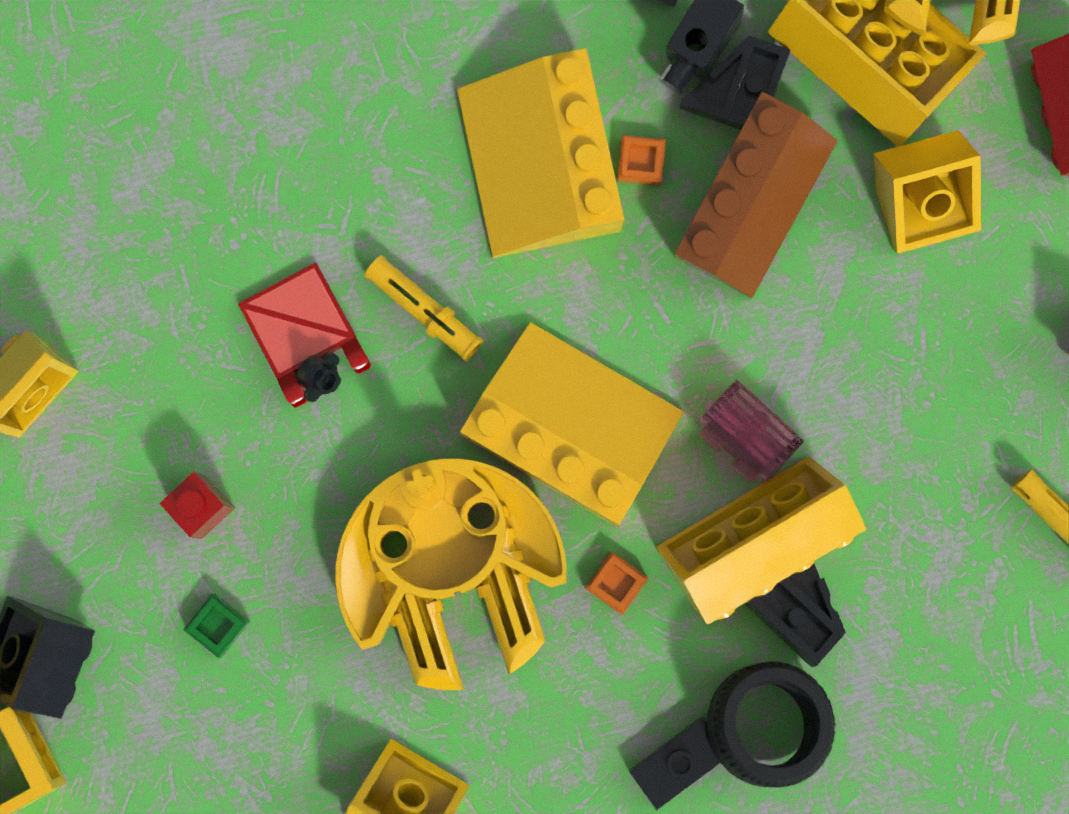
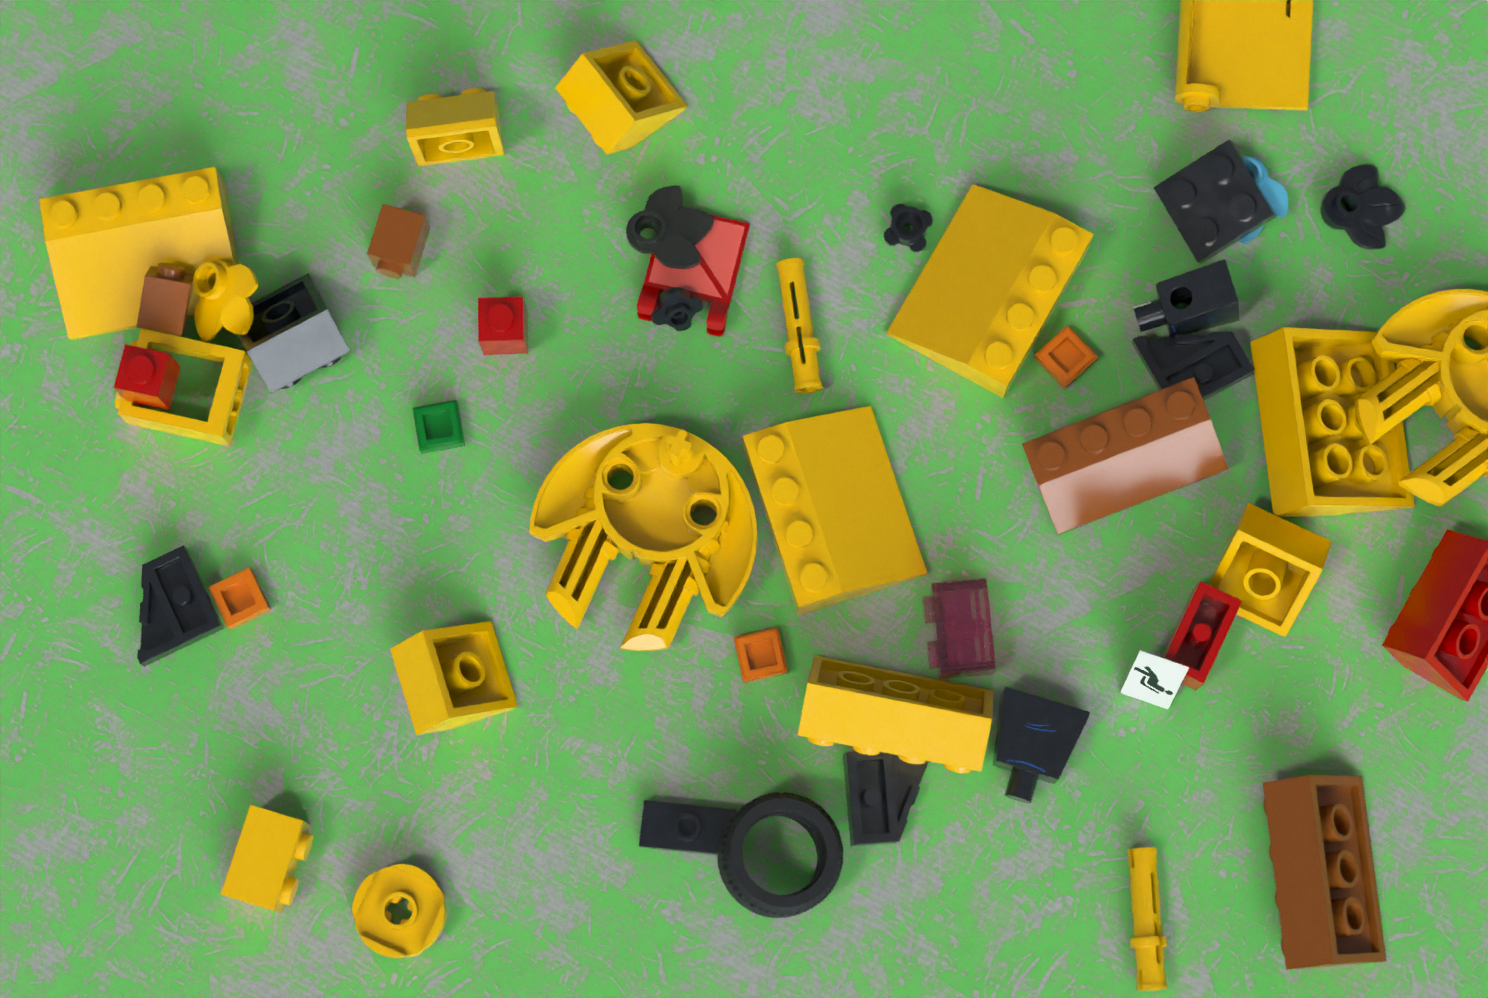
camera: 45 degrees right, 5 degrees down
(56, 511) = (398, 242): none -> dark orange brick
(128, 249) = (619, 95): none -> yellow slope
(262, 313) = (676, 229): none -> pearl dark grey plate
(435, 151) = (909, 215): none -> black plate
(877, 468) = (1034, 740): none -> black torso
(925, 345) = (1154, 679): none -> white sticker
(927, 284) = (1201, 632): none -> red brick

